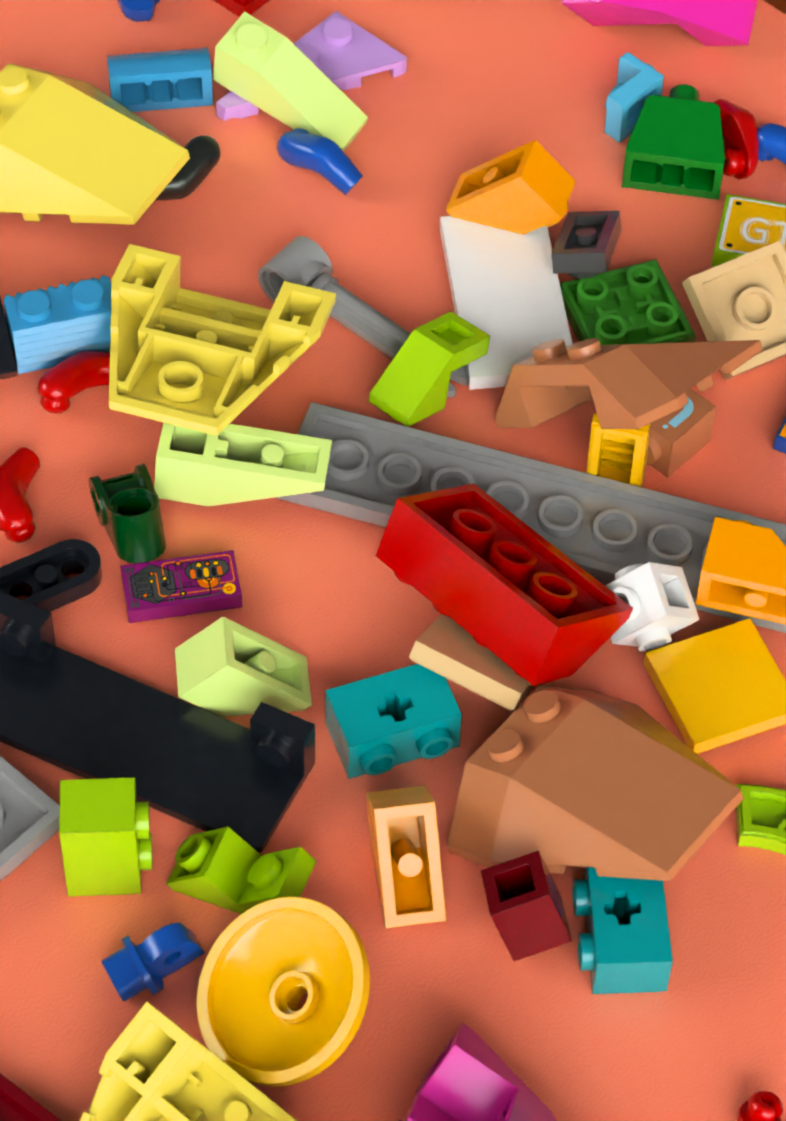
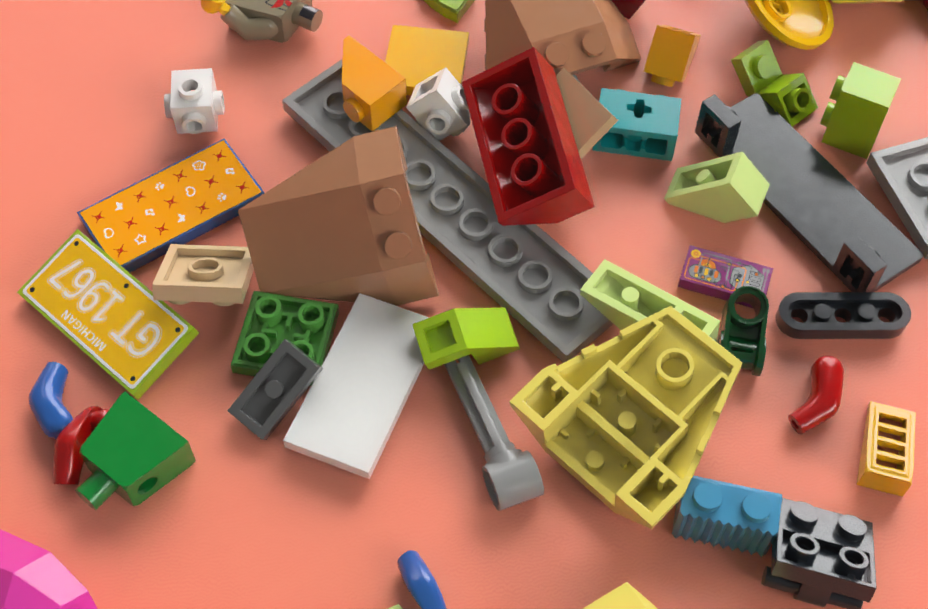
camera: 150 degrees left, 5 degrees up
(72, 376) = (741, 470): red arm -> none
(146, 964) = (839, 59): blue piece -> none
(514, 191) = (310, 440): light orange slope -> none
(625, 101) = (128, 514): medium azure bracket -> none

